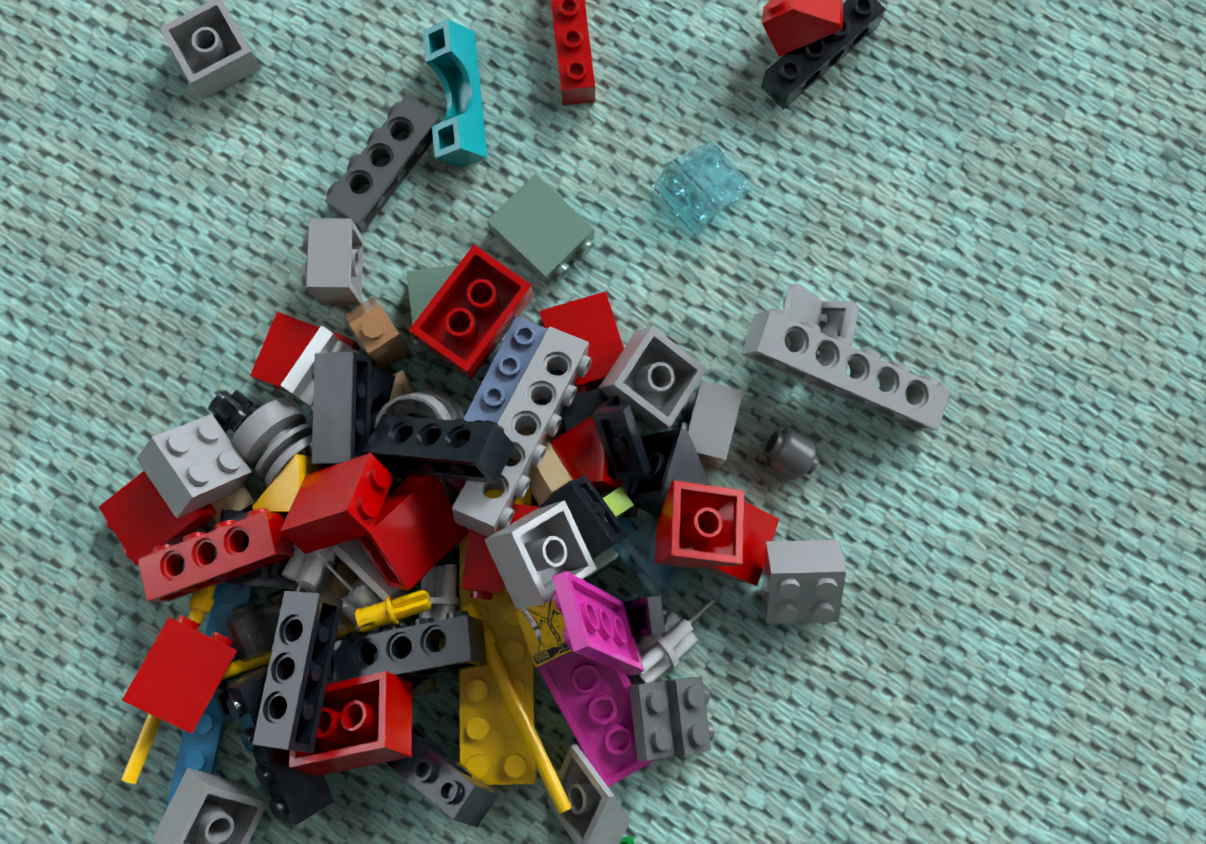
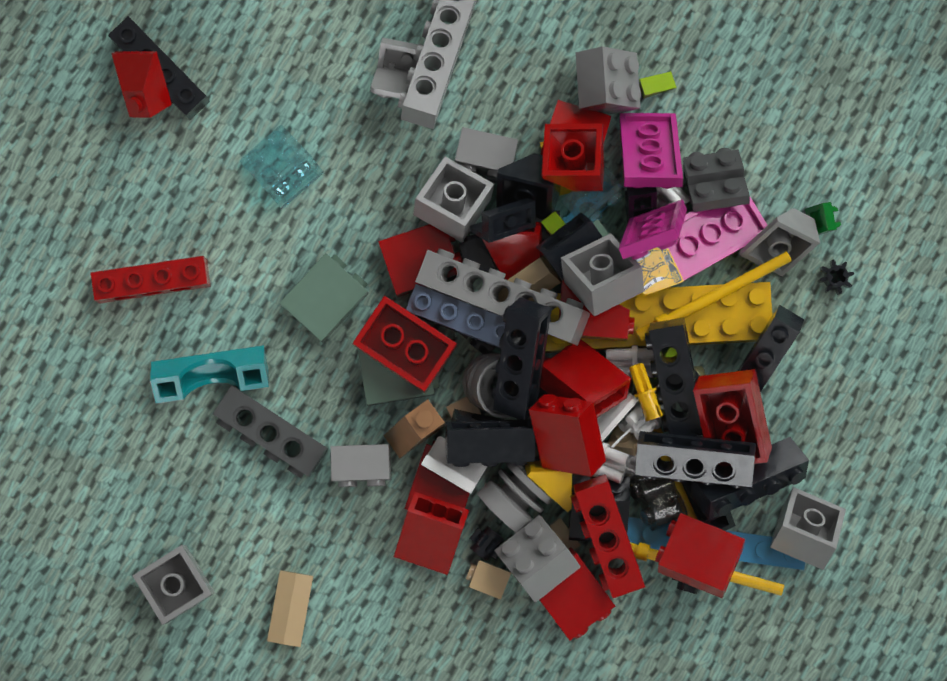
camera: 90 degrees left, 5 degrees up
(174, 179) = (290, 608): none -> tan piece
(184, 407) = (488, 579): none -> tan brick
(243, 340) = (431, 533): none -> red brick
(708, 631) = (650, 150): none -> dark pink plate
(791, 453) = (504, 91): dark grey head -> none
(798, 648) = (656, 84): none -> lime piece

